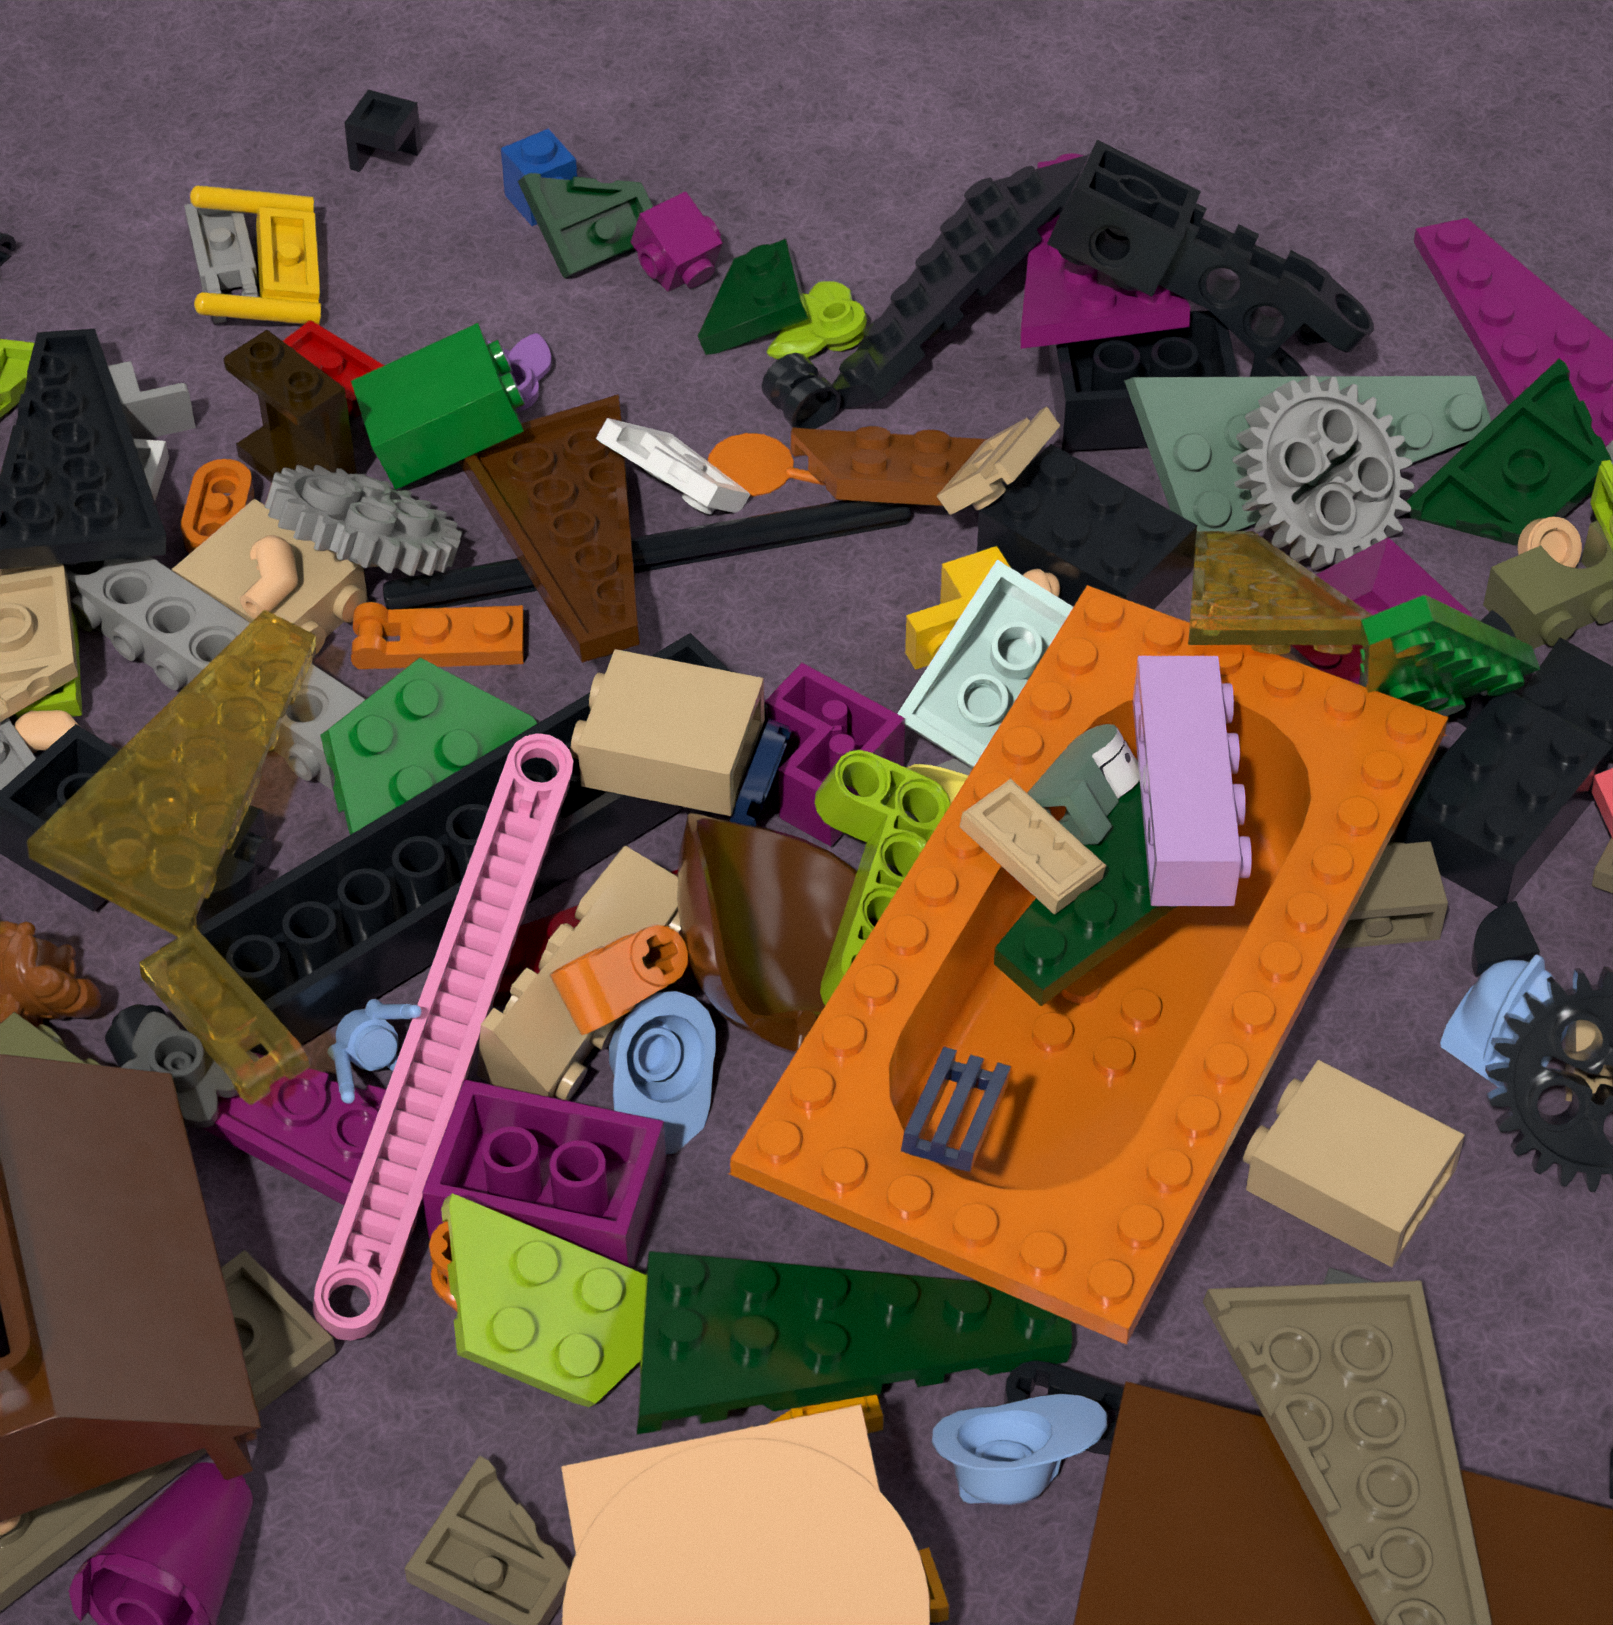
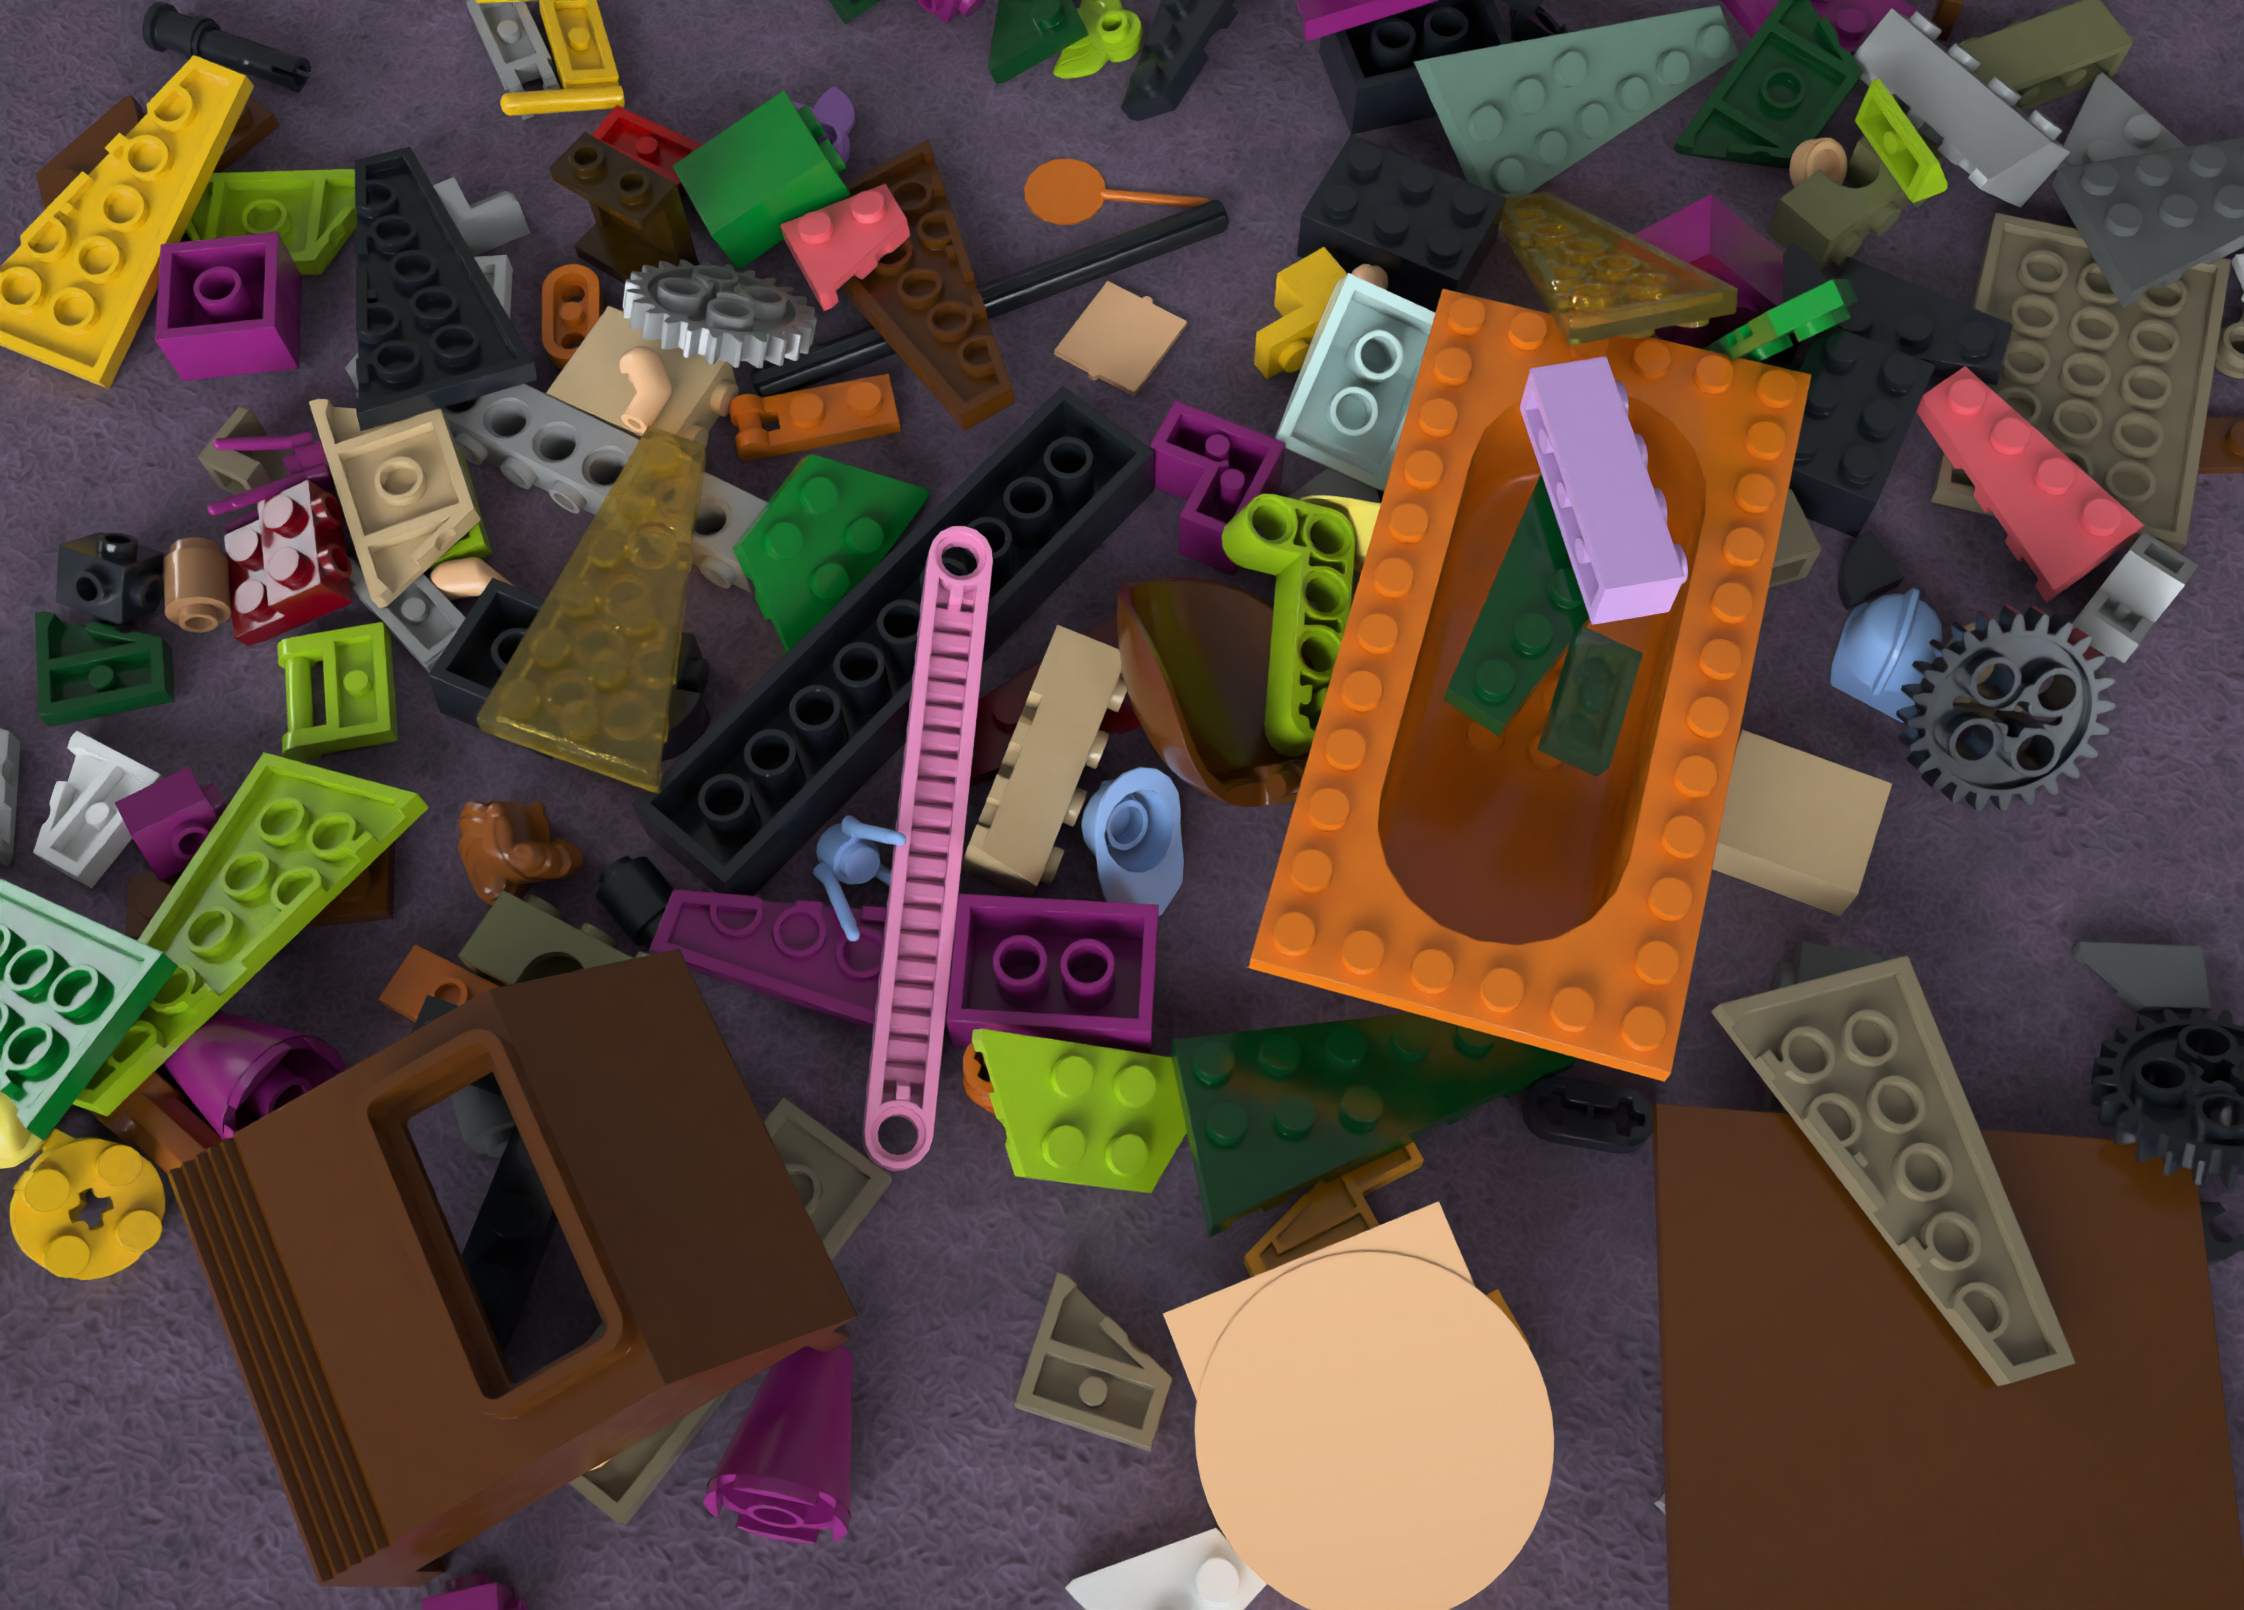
camera: 10 degrees left, 15 degrees up
(196, 1076) = (677, 922): dark grey animal -> none
(223, 1014) = (712, 870): clear yellow plate -> none
(508, 470) = (845, 240): none -> coral wing
(614, 978) = (1086, 766): orange piece -> none
(669, 732) = (1072, 498): tan brick -> none
(675, 464) = (1001, 206): white wing -> none
(761, 773) = (1159, 523): dark blue tile -> none
(772, 609) = (1120, 338): none -> light nougat piece
(798, 390) = (1095, 109): black wheel -> none
(881, 464) = (1207, 175): dark orange wing -> none
(967, 1077) = (1457, 826): dark blue tile -> none
(997, 461) = (1308, 161): tan plate -> none
(1016, 1447) = (1558, 1167): light blue piece -> none
(1032, 846) = (1463, 578): tan plate -> none
(1088, 781) = (1493, 506): sand green leg -> none
(1136, 981) = (1590, 701): none -> clear green plate
(1291, 430) = (1607, 125): light grey gear -> none

